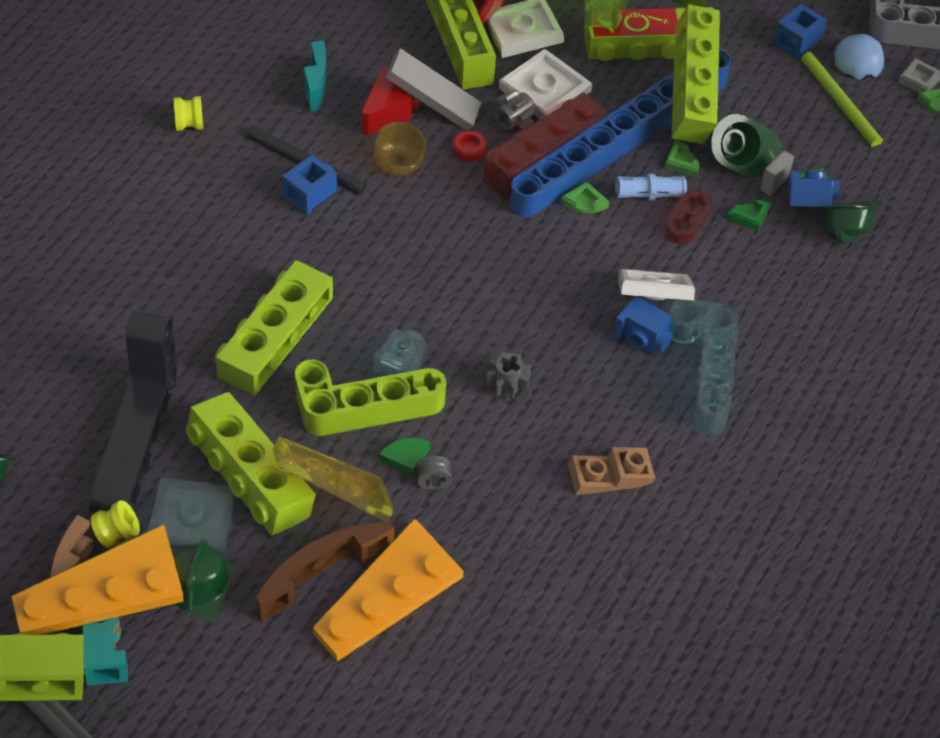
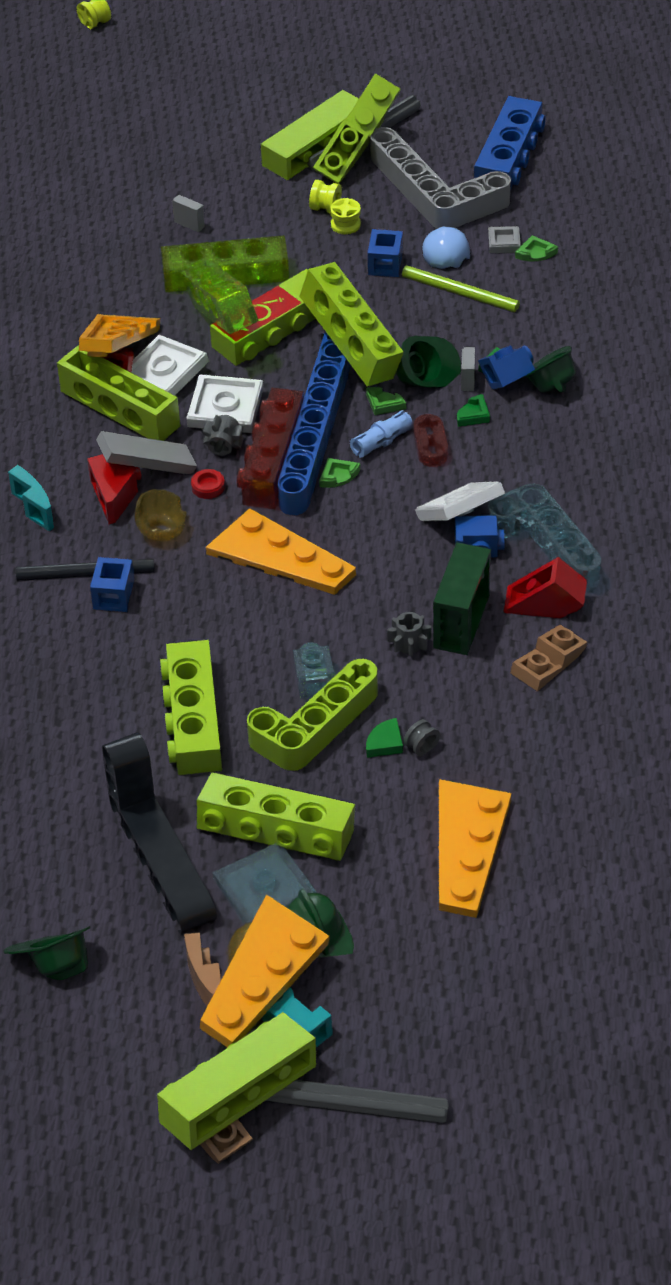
camera: 30 degrees left, 5 degrees down
(115, 524) = (216, 925): neon yellow wheel -> none
(336, 477) = (354, 782): clear yellow wing -> none
(362, 541) = (416, 822): reddish brown slope -> none
(472, 238) = (278, 551): none -> light orange wing
(572, 370) = (461, 598): none -> dark green window
(661, 412) = (547, 592): none -> red slope

